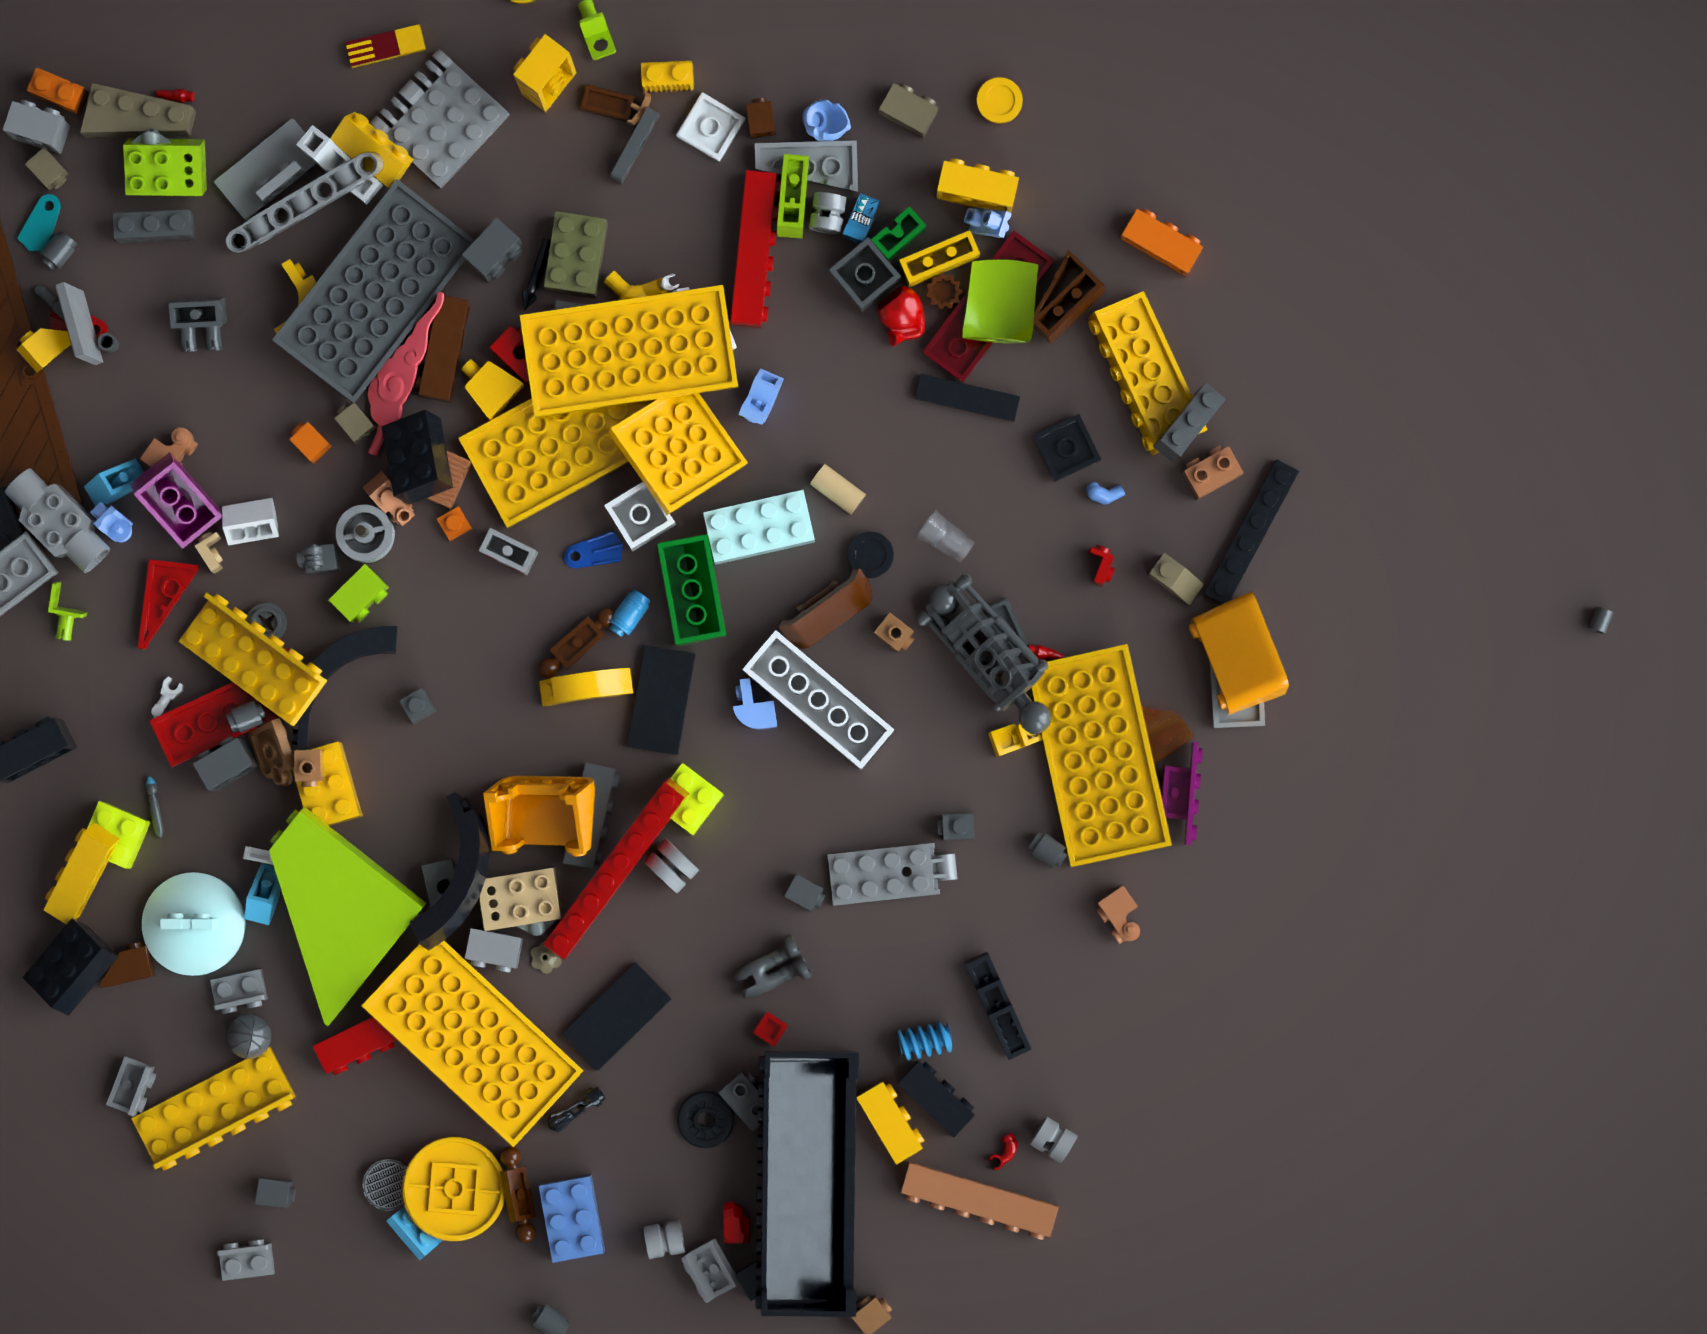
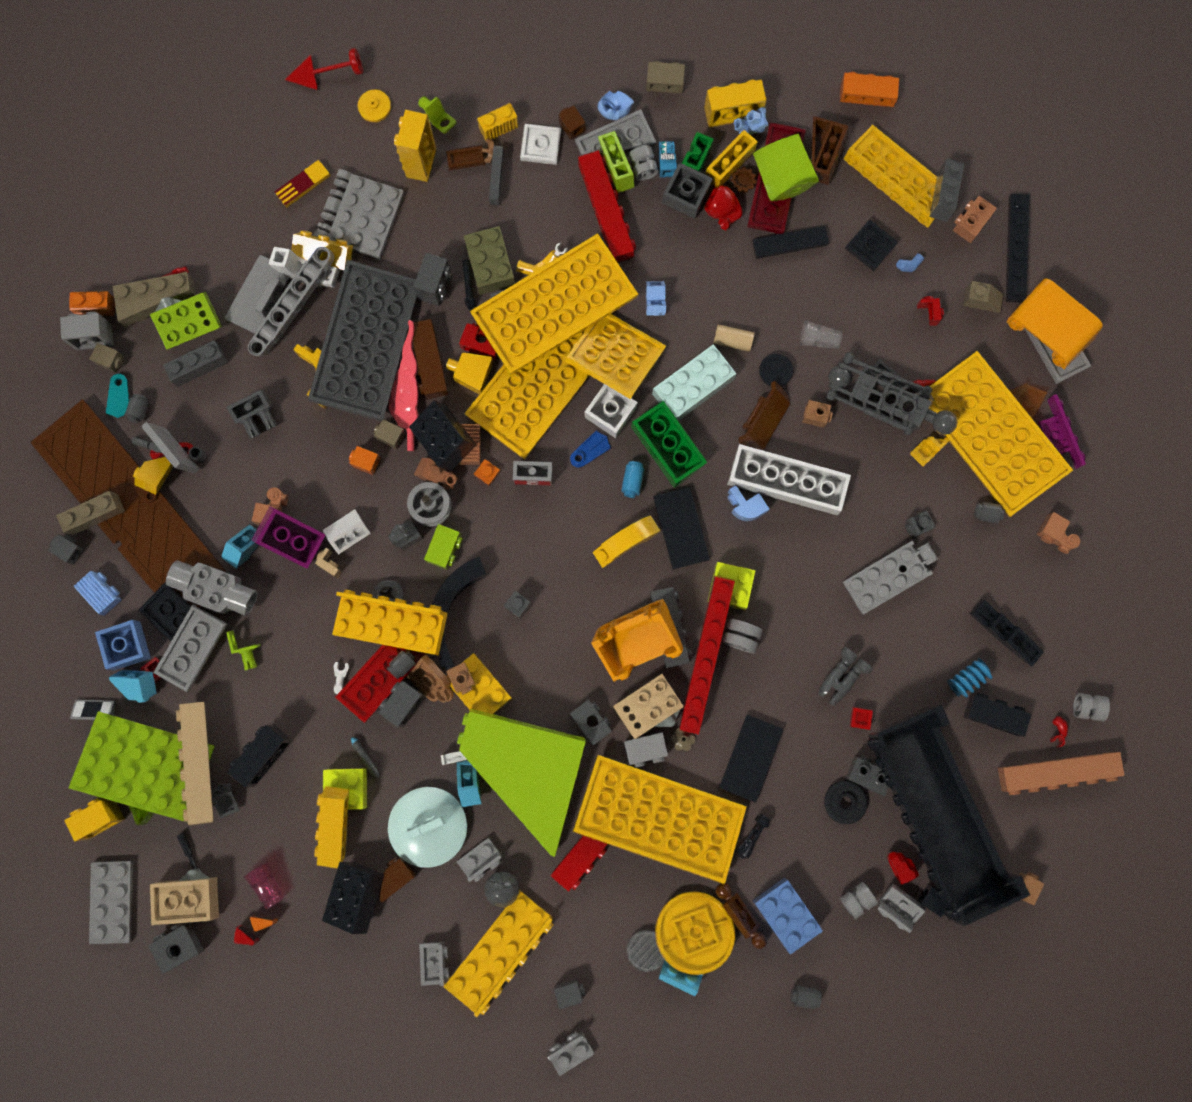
camera: 25 degrees left, 5 degrees down
(112, 523) = (250, 572): light blue hips -> none
(163, 589) = (306, 604): red wing -> none
(467, 883) = (608, 711): black arch -> none
(576, 643) = (606, 515): reddish brown plate -> none
(805, 893) = (840, 614): dark grey brick -> none
(890, 1121) = (974, 745): yellow brick -> none
(999, 100) = (720, 47): yellow piece -> none

